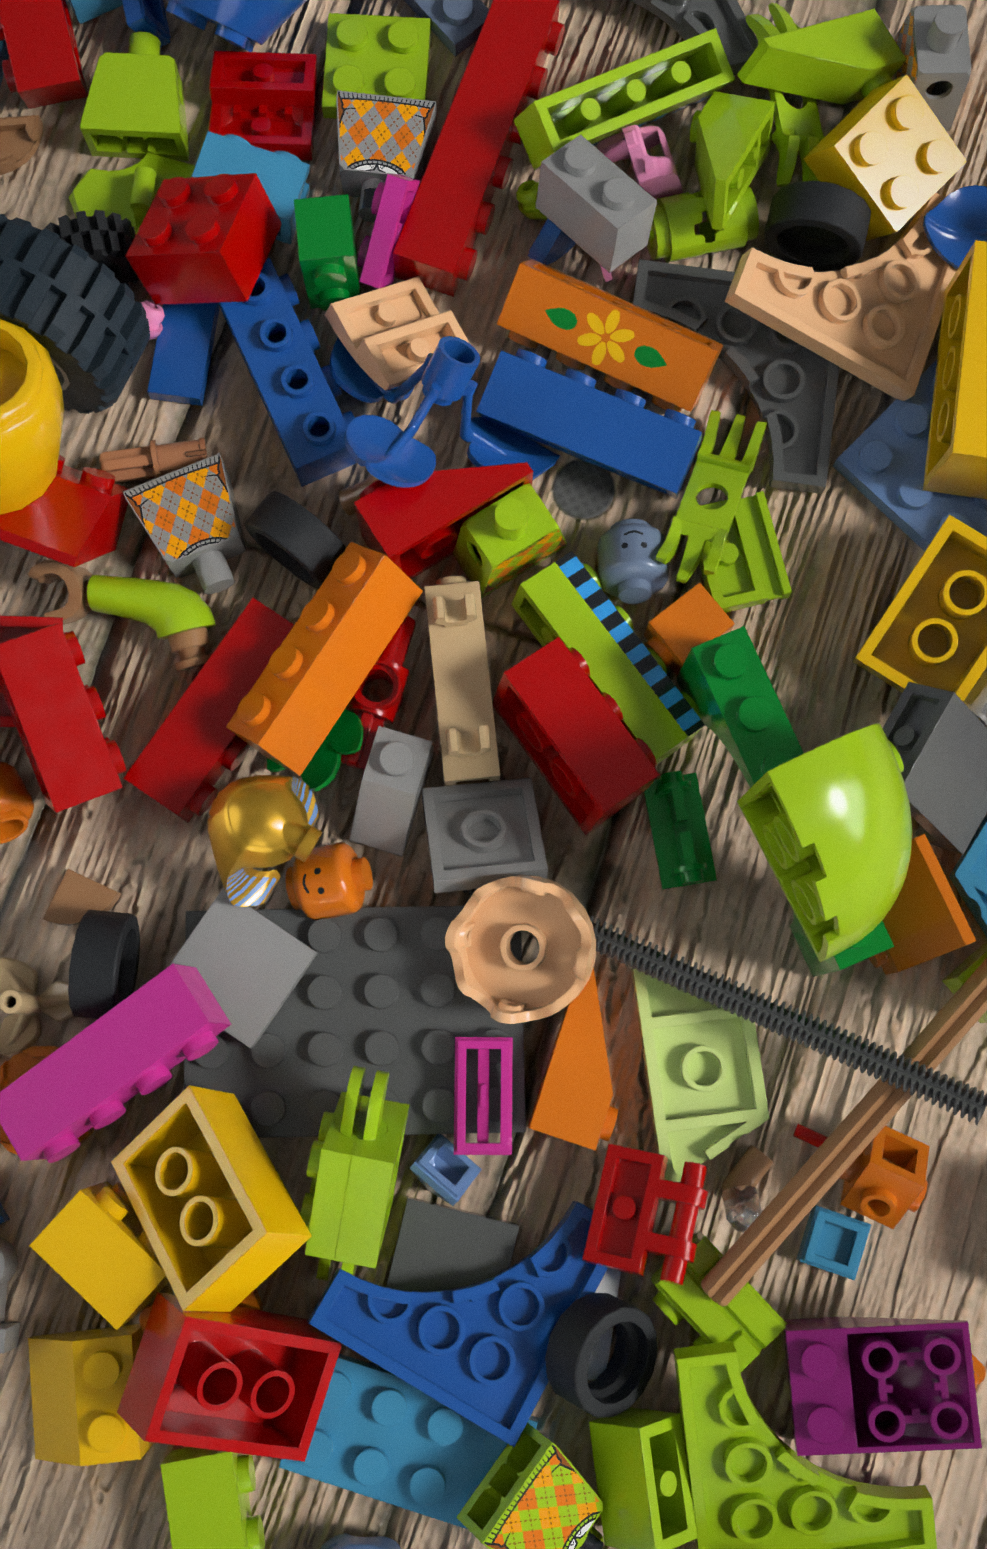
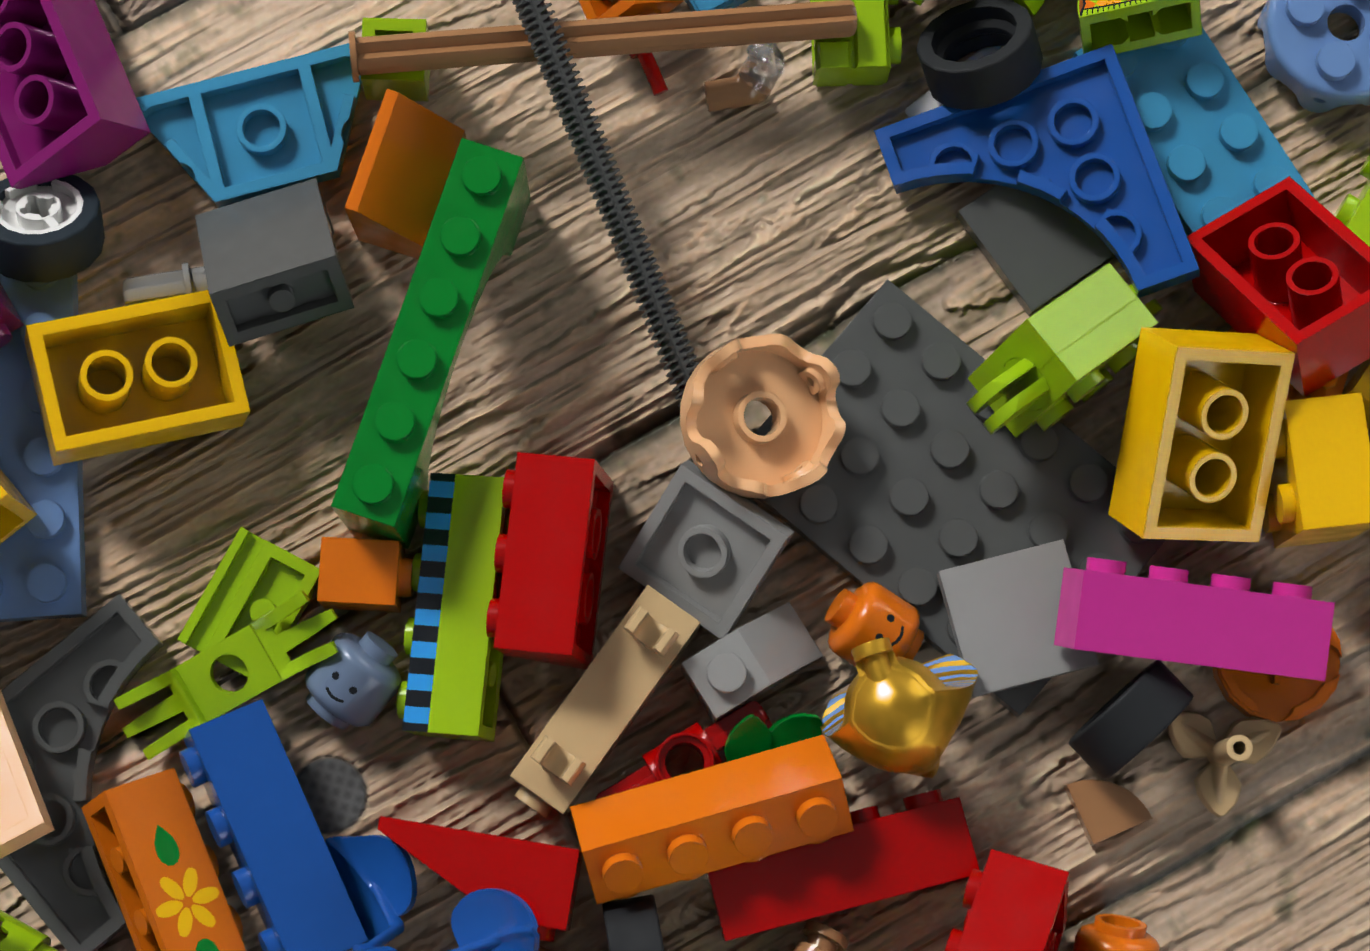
camera: 140 degrees left, 0 degrees up
(444, 1172) = (980, 306): medium blue slope -> none
(483, 1146) = (863, 373): dark pink tile -> none
(509, 538) = (447, 793): lime torso -> none
(577, 1079) = (811, 279): orange slope -> none
(628, 1209) = (860, 141): red plate -> none
(679, 830) = (532, 407): green hinge -> none
(698, 1073) = (704, 197): yellowish green wing -> none
(836, 835) = (430, 254): lime brick -> none

